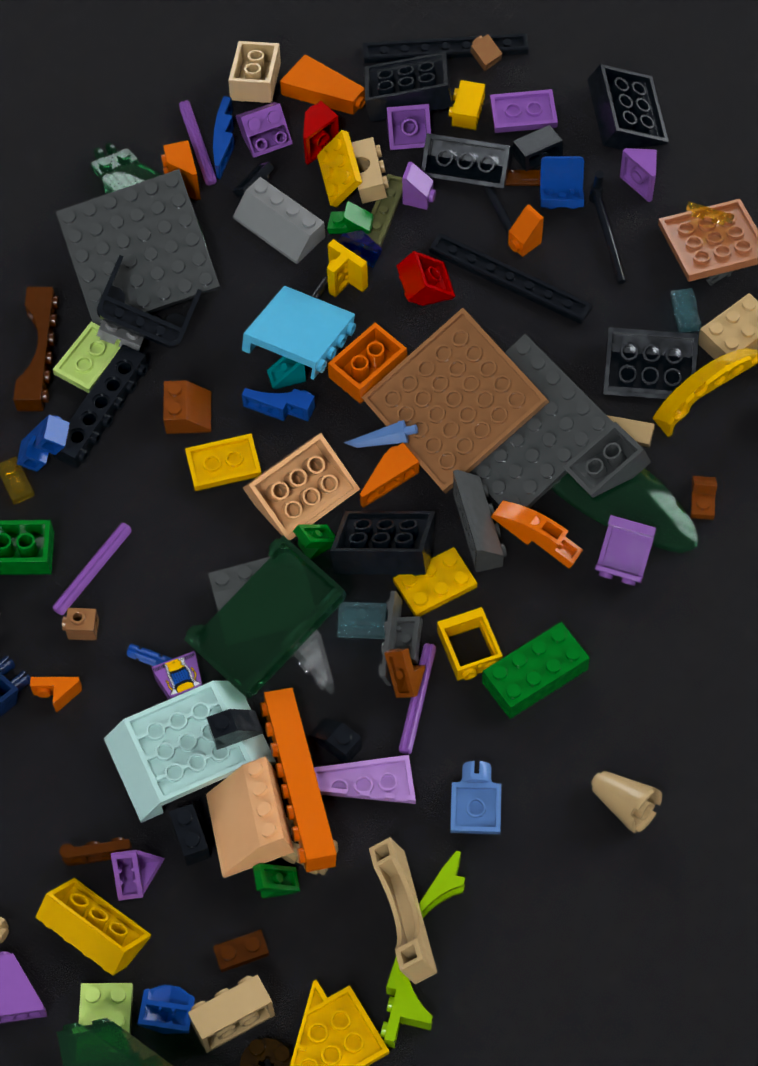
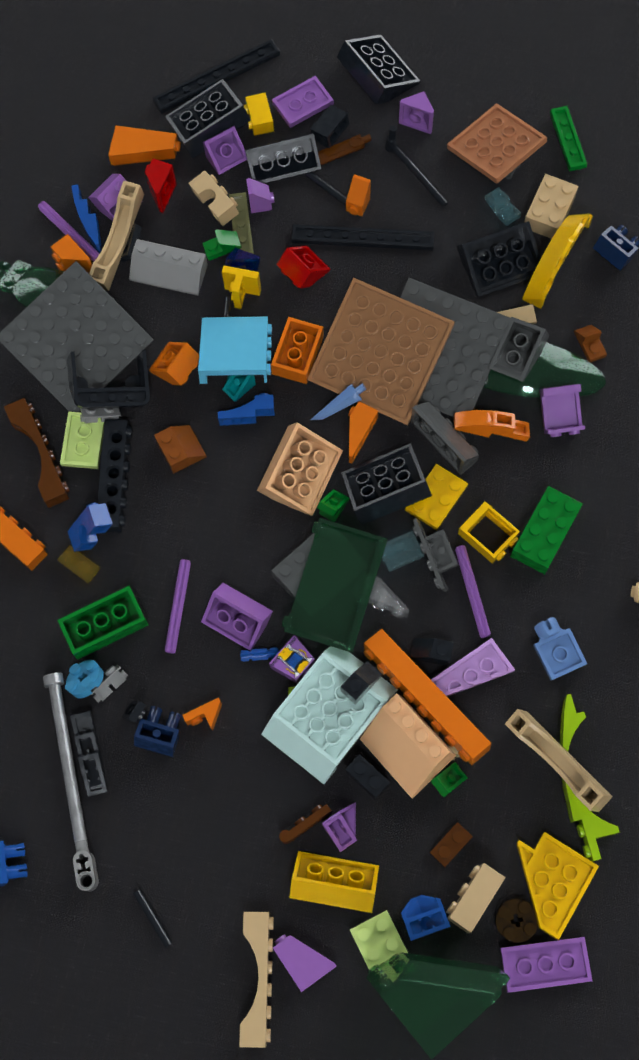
camera: 25 degrees left, 10 degrees up
(81, 624) = (194, 654): medium nougat brick -> none
(146, 605) = (236, 616): none -> medium lavender slope
(223, 462) = (230, 476): yellow plate -> none
(229, 321) = (175, 363): none -> orange slope
(254, 71) = (84, 156): tan brick -> none
(269, 139) = (126, 210): none -> tan arch
(339, 168) = (192, 206): yellow plate -> none
(404, 676) = (456, 578): dark orange slope -> none
(485, 51) = (250, 66): medium nougat brick -> none
(562, 182) = (363, 146): blue bracket -> none
(717, 216) = (477, 125): clear yellow plate -> none

